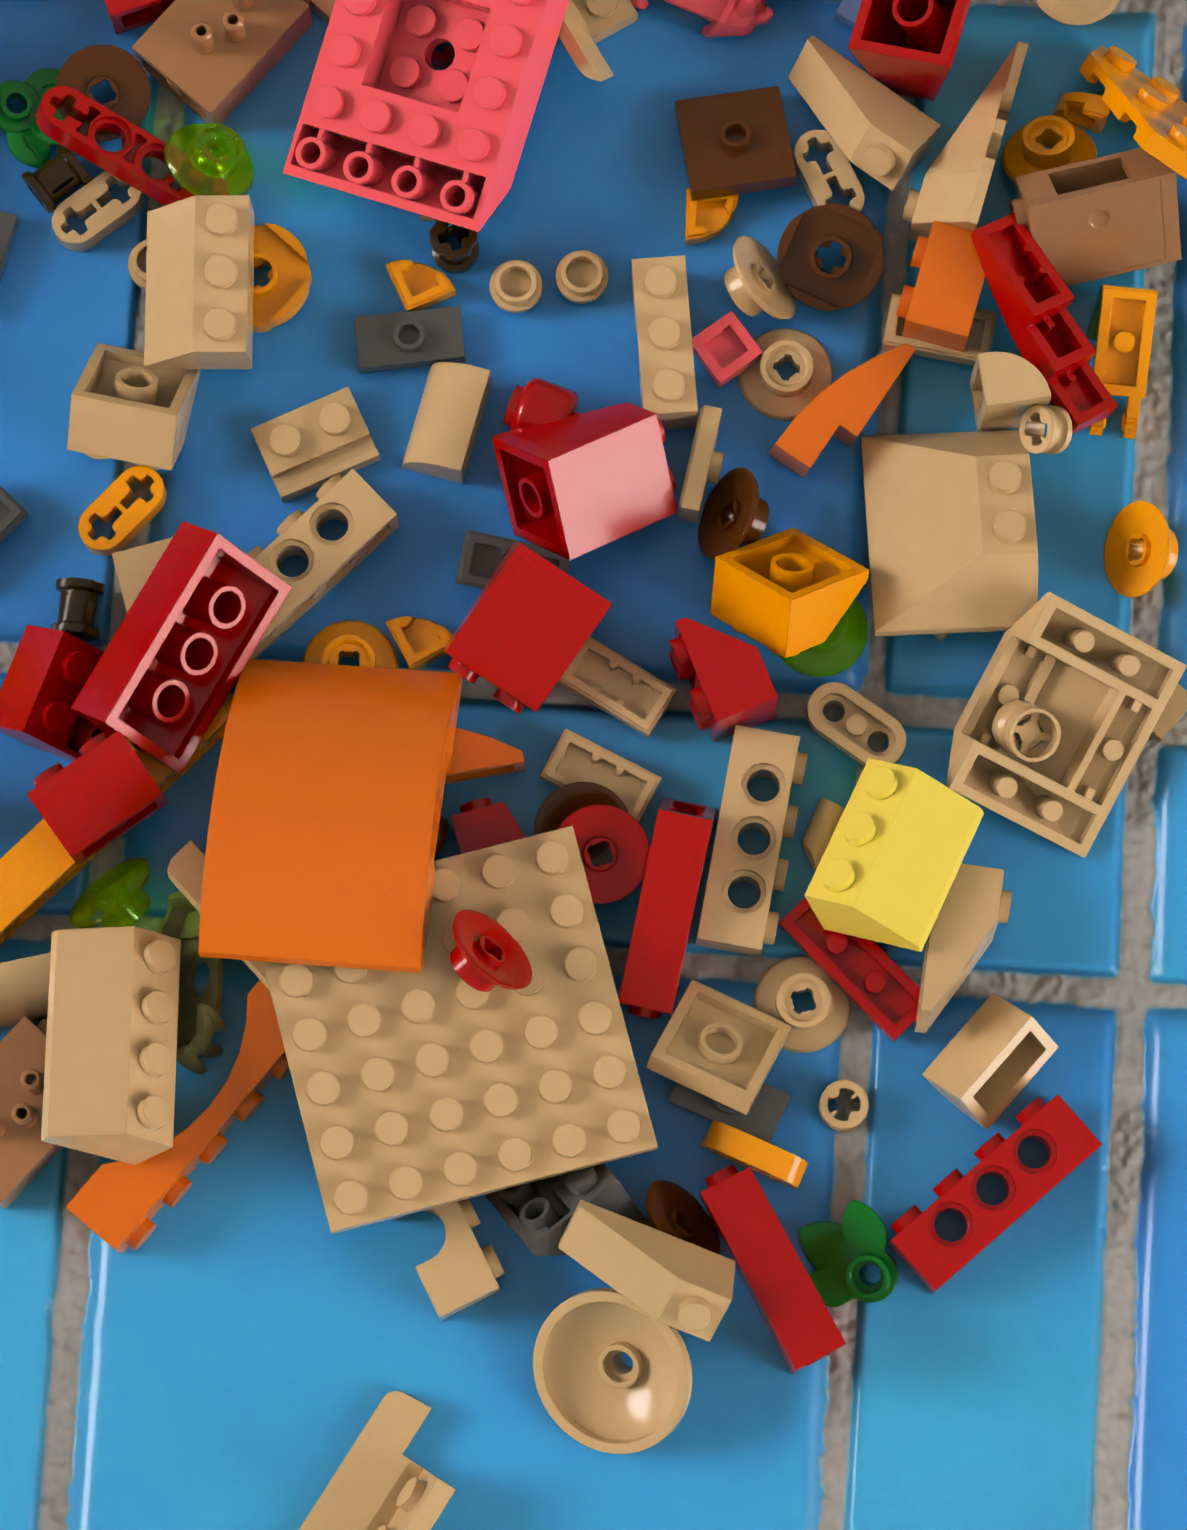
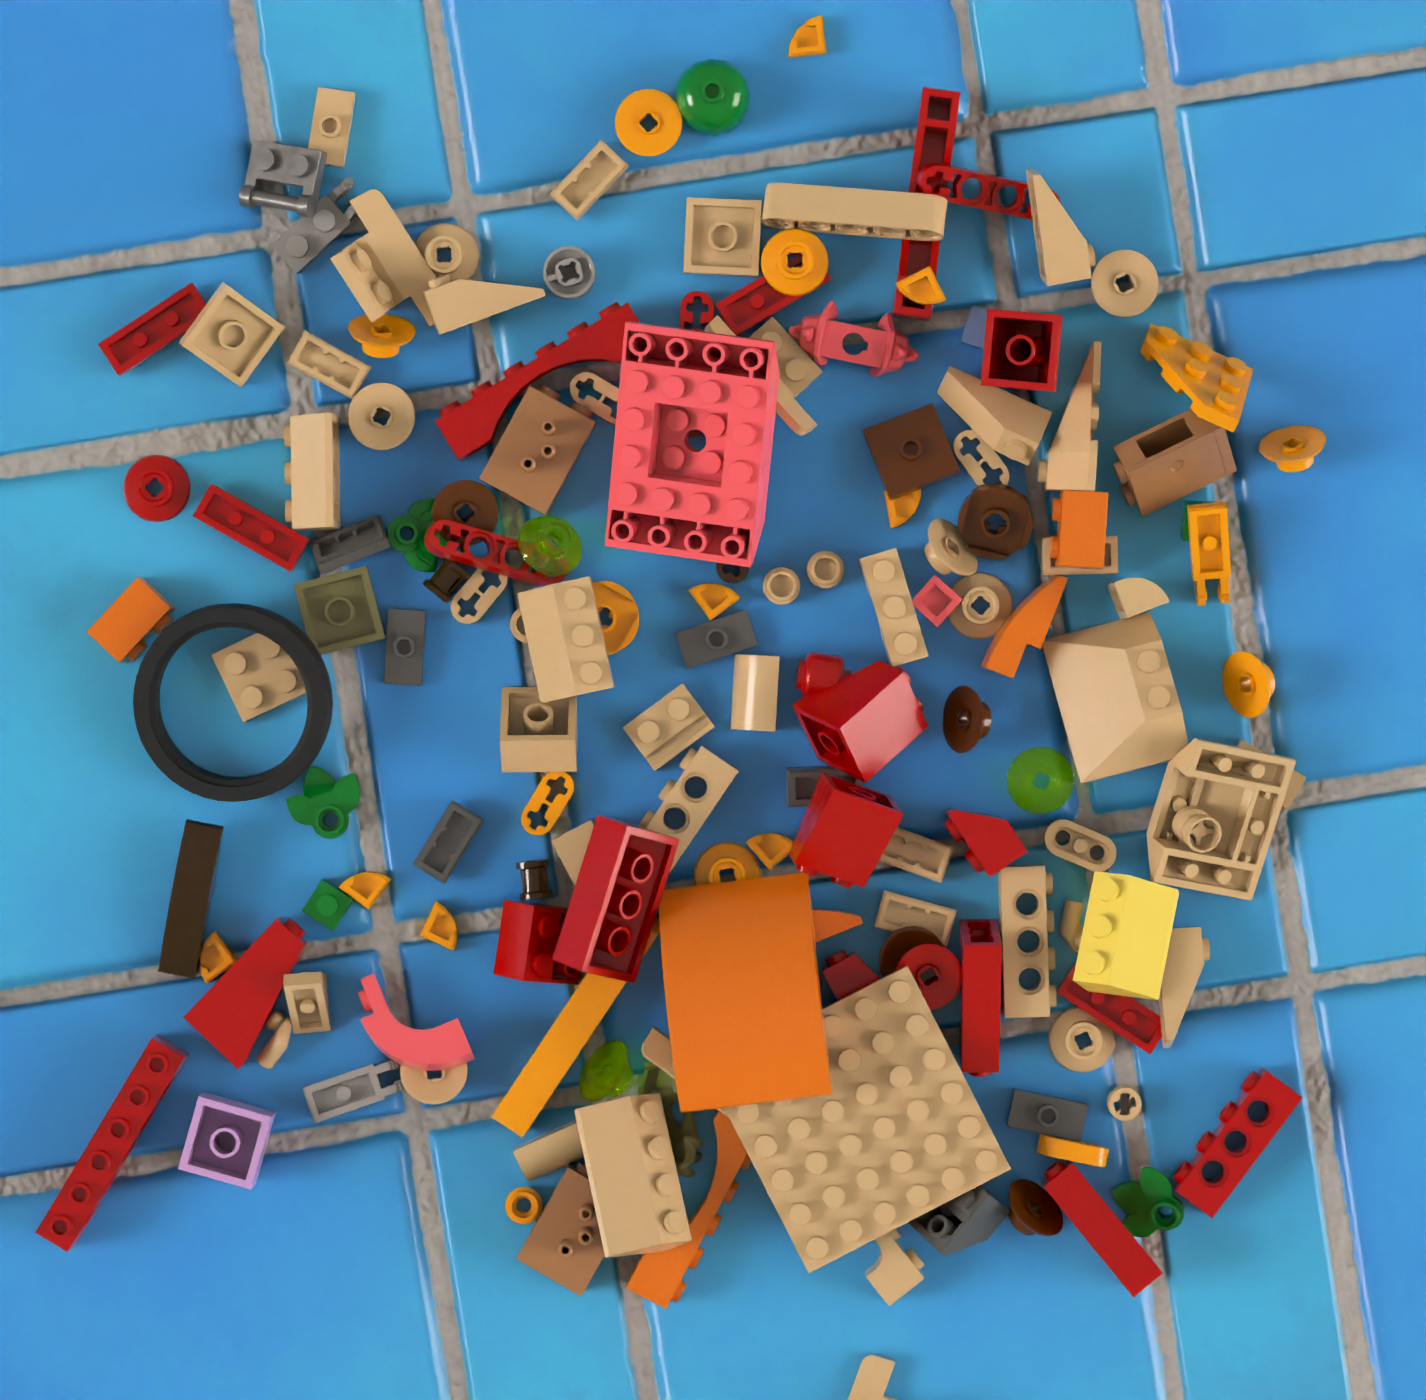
camera: 20 degrees left, 10 degrees up
(96, 795) = (585, 1017): red slope -> none
(487, 954) = (874, 1072): red piece -> none
(592, 1389) = (1009, 1331): tan dish -> none
(652, 1269) = (1027, 1250): tan slope -> none
(703, 464) = (937, 687): tan plate -> none
(718, 1047) = (1034, 1086): tan plate -> none
(785, 590) = (1014, 766): light orange slope -> none
(990, 1060) = (1215, 1052): tan brick -> none
(1027, 147) = (1119, 424): light orange piece -> none
(1036, 313) = (1150, 545): red slope -> none
(1058, 429) = (1178, 620): tan bush -> none
(1083, 110) = (1145, 375): light orange tile -> none

